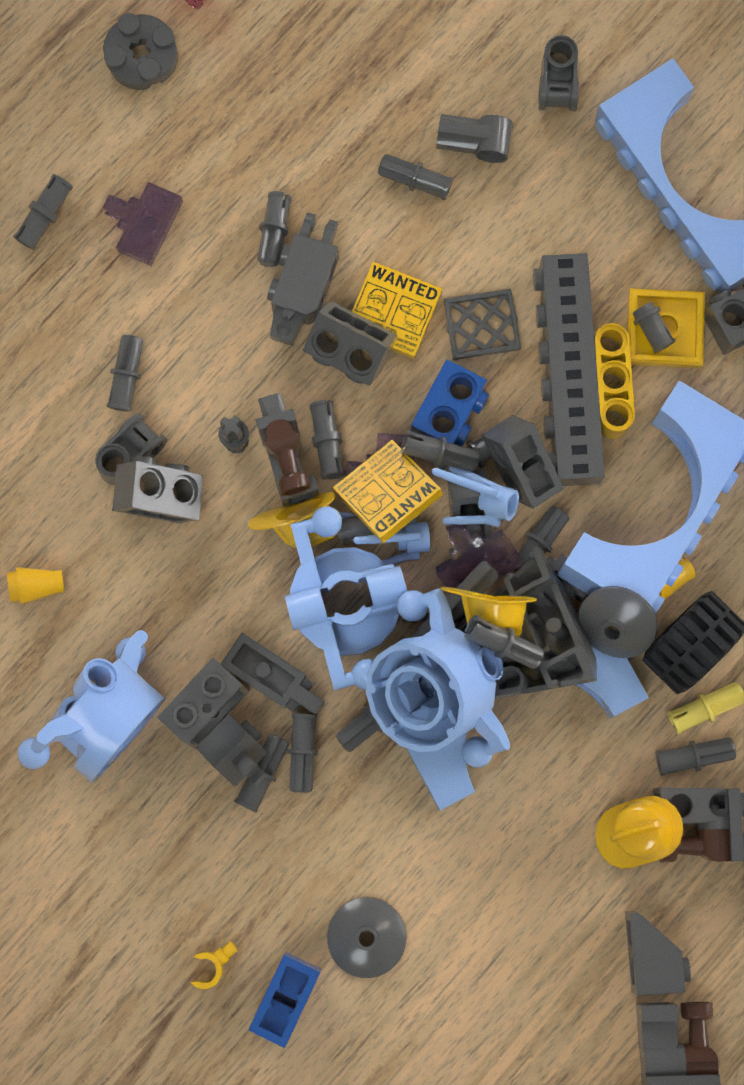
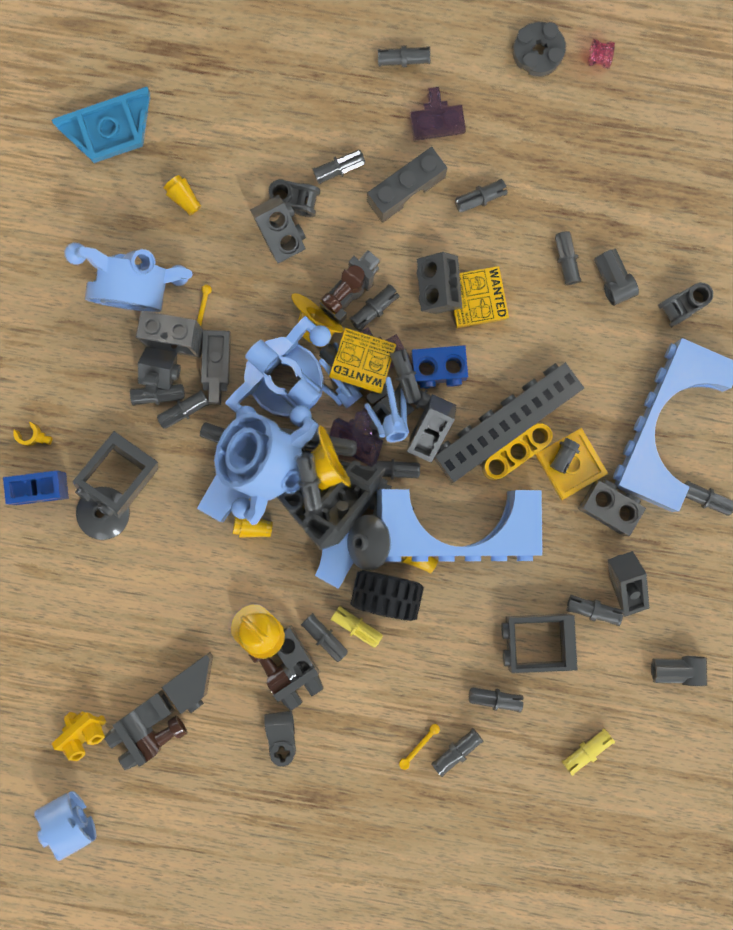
camera: 55 degrees right, 5 degrees up
(170, 631) = (206, 290): none -> yellow hinge
(203, 306) = (417, 175): none -> dark grey arch
(233, 434) = (340, 251): dark grey axle -> none
(303, 281) = (461, 232): dark grey hinge -> none
(318, 851) = (130, 452): none -> dark grey window
(438, 509) = (374, 397): none -> dark grey tile
(479, 298) = (489, 339): dark grey window -> none
(503, 763) = (245, 529): none -> yellow cone

